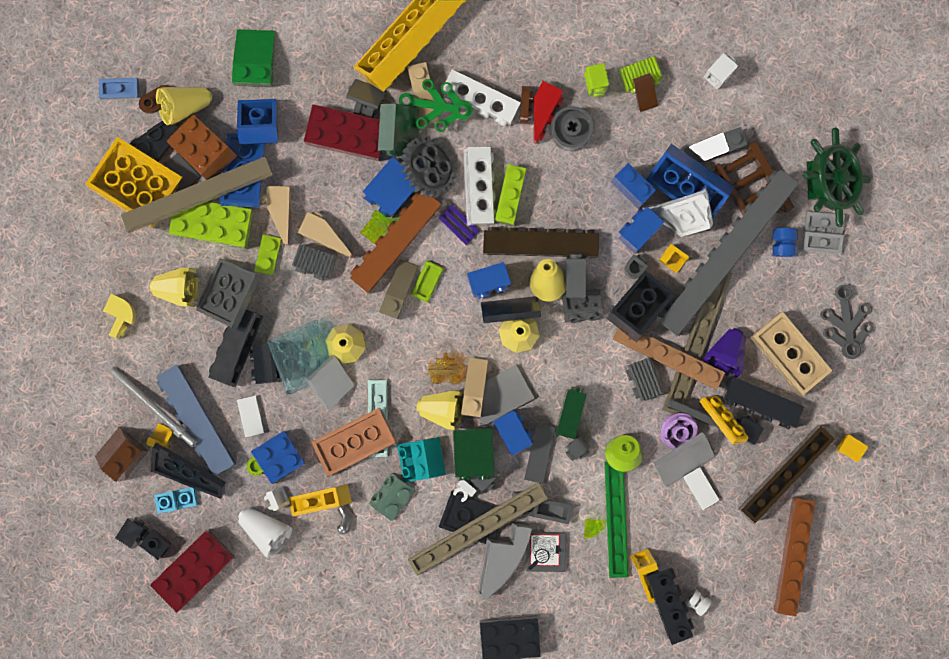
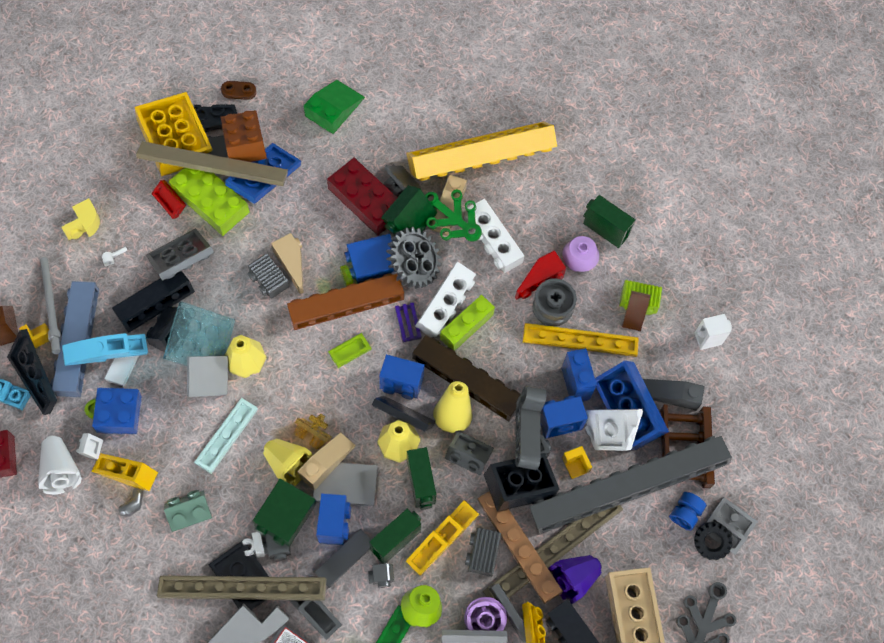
camera: 30 degrees right, 20 degrees down
(118, 88) = (215, 65): medium blue plate -> none
(166, 334) = (108, 256): none -> white hand
(176, 286) = (145, 223): light yellow cone -> none
(177, 247) = (168, 199): none -> red tile
(181, 102) = (253, 96): light yellow cone -> none
(231, 416) = (104, 348): none -> medium azure slope
(257, 121) = (301, 144): blue brick -> none
(268, 255) = (235, 250): lime plate -> none
(279, 206) = (272, 217): tan slope -> none
(353, 442) = (190, 440): nougat plate -> none
(373, 230) = (333, 281): clear neon green tile -> none
(398, 289) = (319, 341): dark tan slope -> none
(421, 459) = (237, 493): teal slope -> none
(526, 113) = (524, 266): reddish brown plate -> none
(560, 355) = (421, 478): none -> dark green brick
(566, 66) = (581, 254): none -> lavender cone
(572, 21) = (608, 221): none -> dark green brick
(575, 275) = (479, 419): dark grey brick -> none
(596, 80) = (600, 276): lime brick -> none
(605, 388) = (442, 537): none -> yellow slope
(612, 146) = (580, 339): none -> yellow tile
(621, 261) = (528, 427): none -> dark grey beam
(822, 265) = (722, 550): none -> black tyre
(829, 177) = (762, 477): dark green piece -> none

